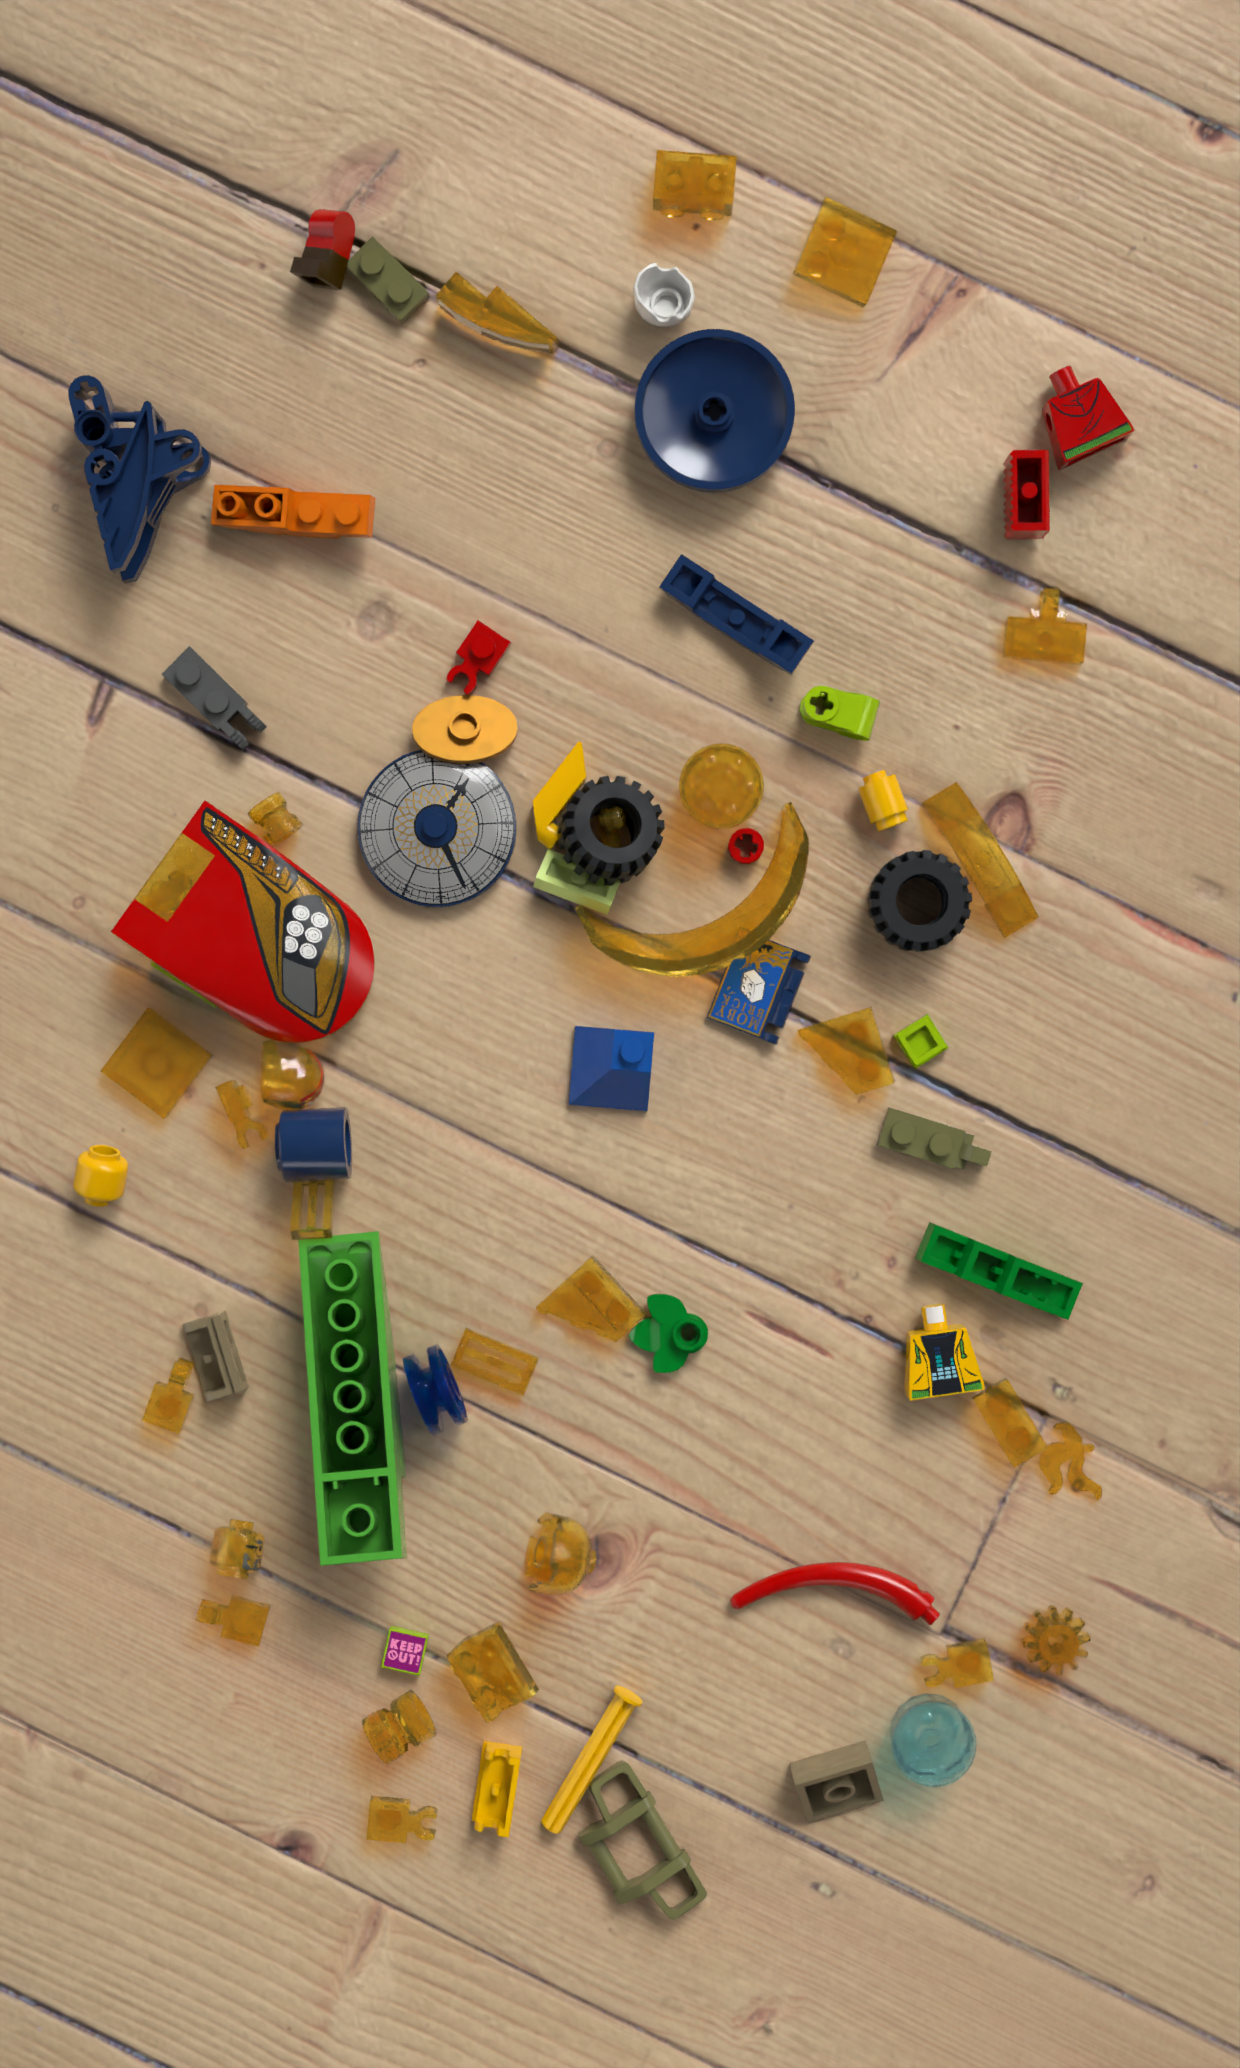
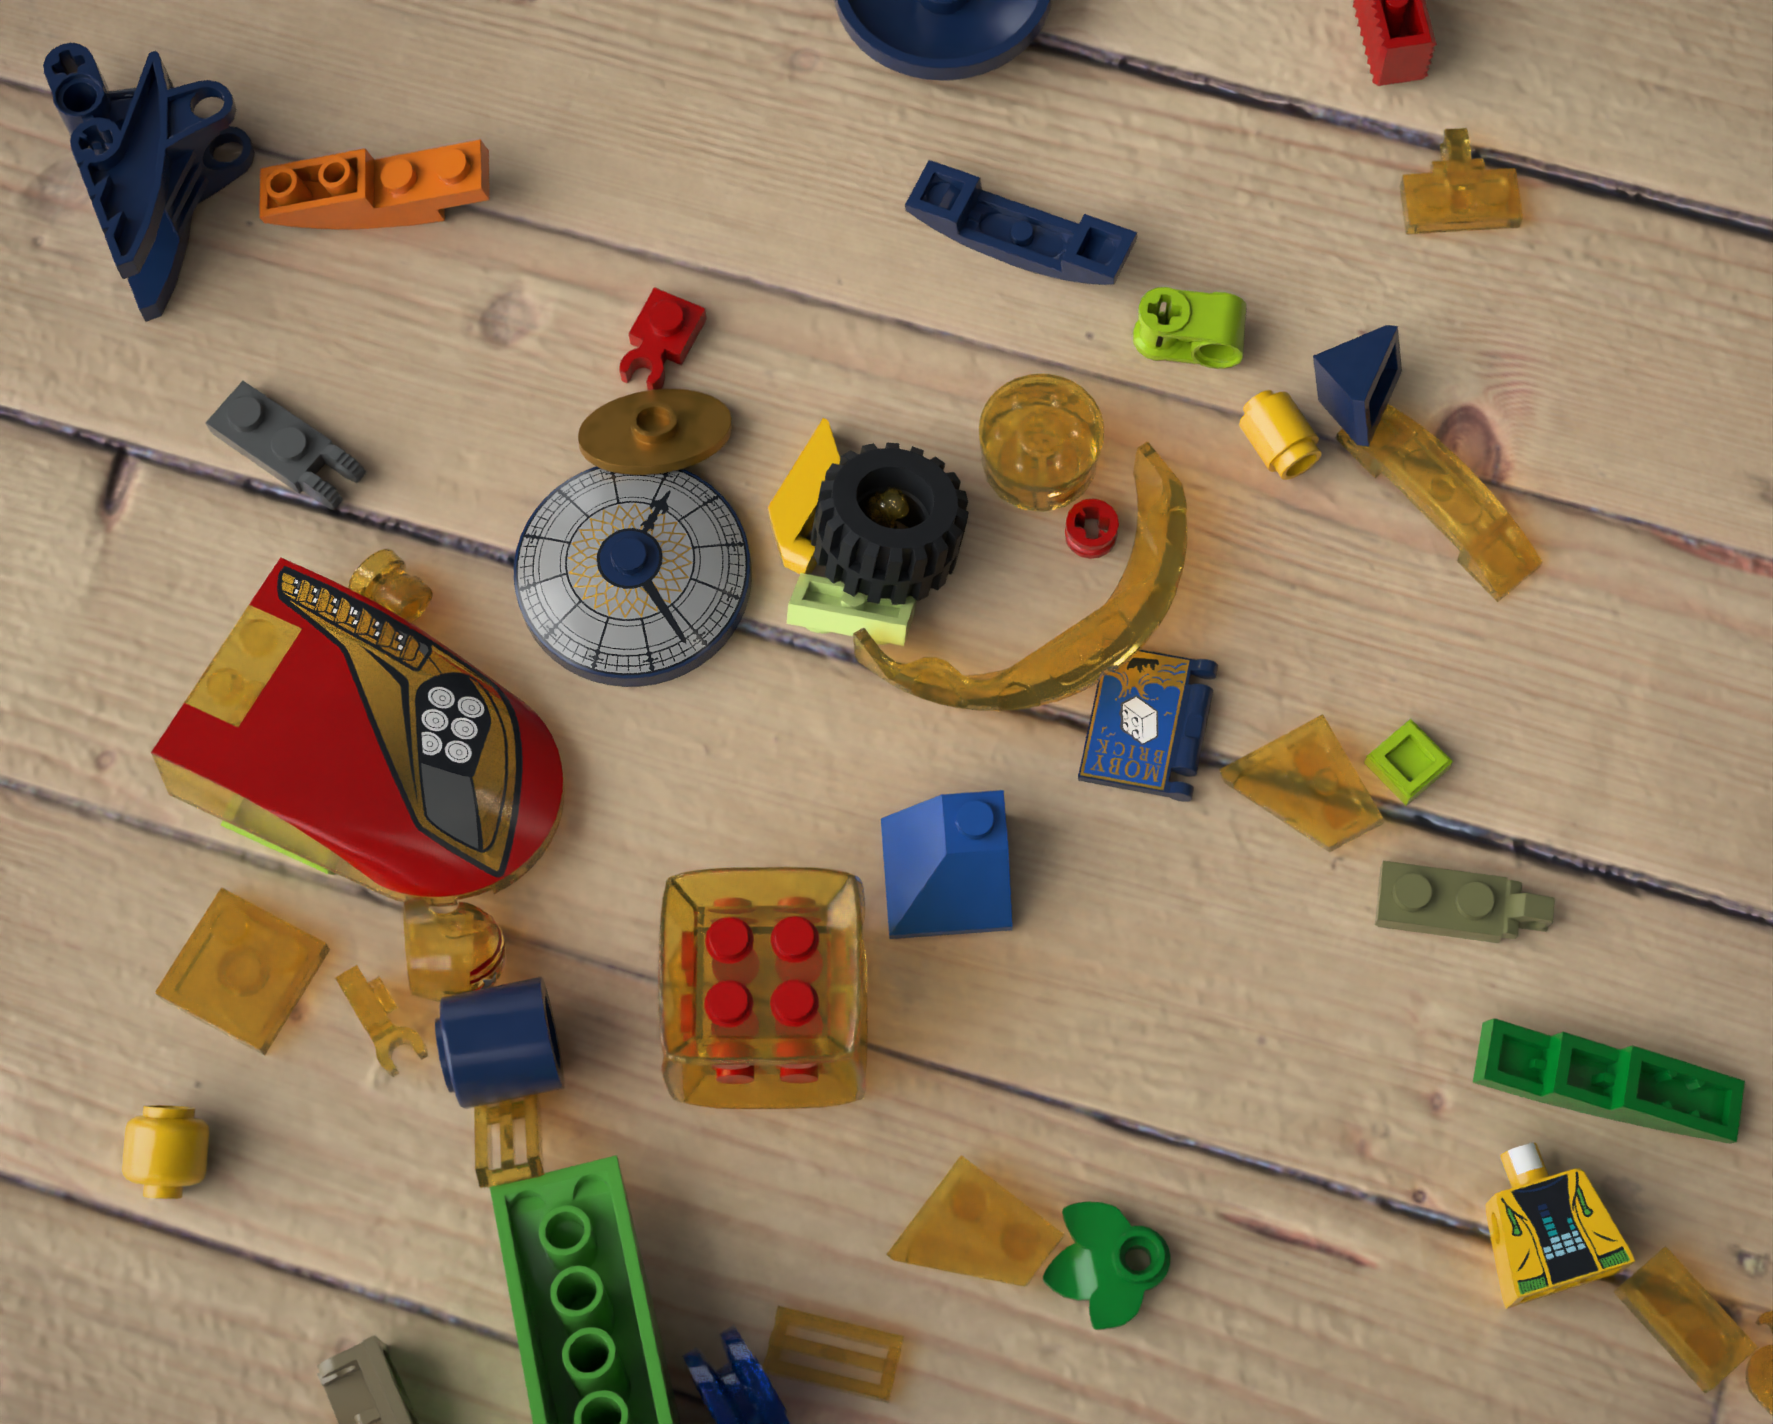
camera: 10 degrees left, 20 degrees down
(482, 1146) = (763, 988): none -> clear yellow piece
(943, 772) = (1358, 380): none -> dark blue slope
(952, 890) = (1369, 513): black tyre -> none

